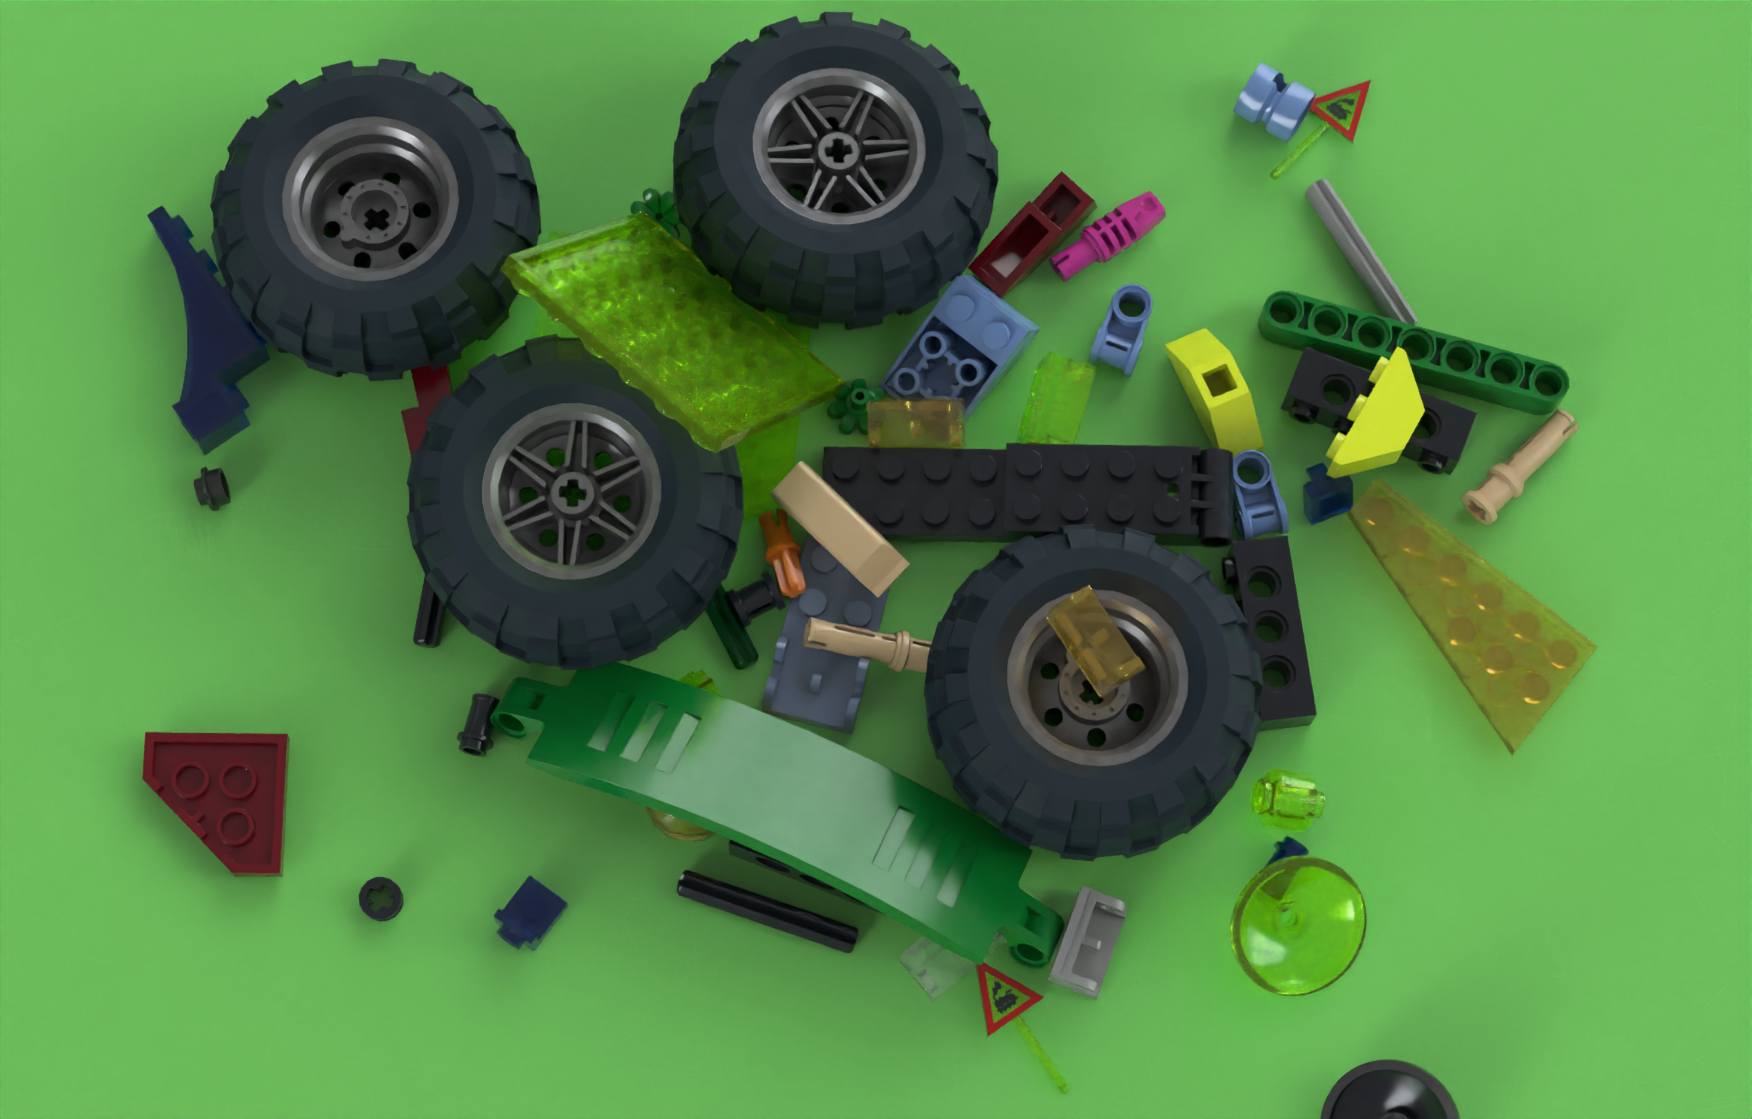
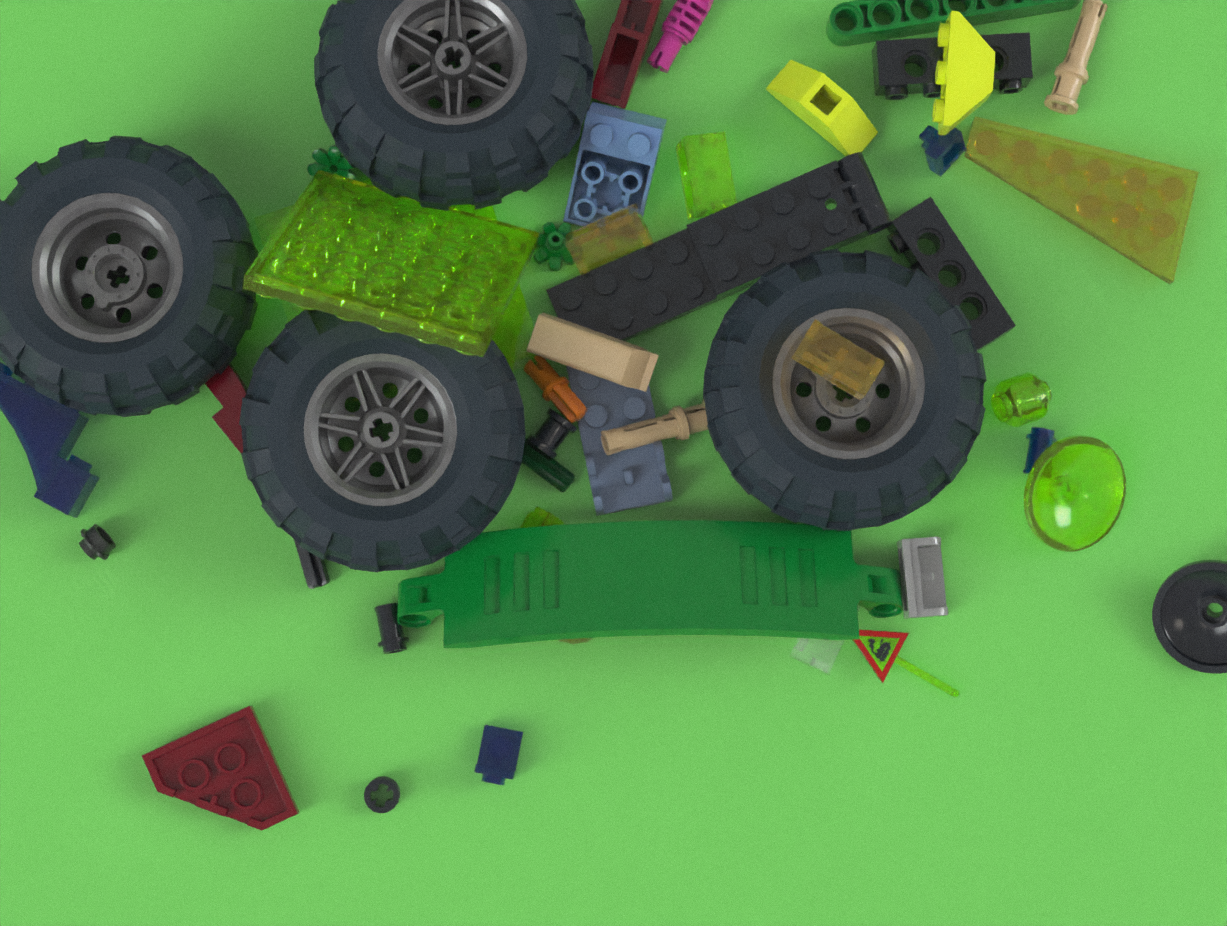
camera: 20 degrees left, 10 degrees up
(767, 911) = (674, 666): black axle -> none
(1122, 336) = (730, 98): medium blue piece -> none
(1257, 506) = (894, 177): medium blue piece -> none

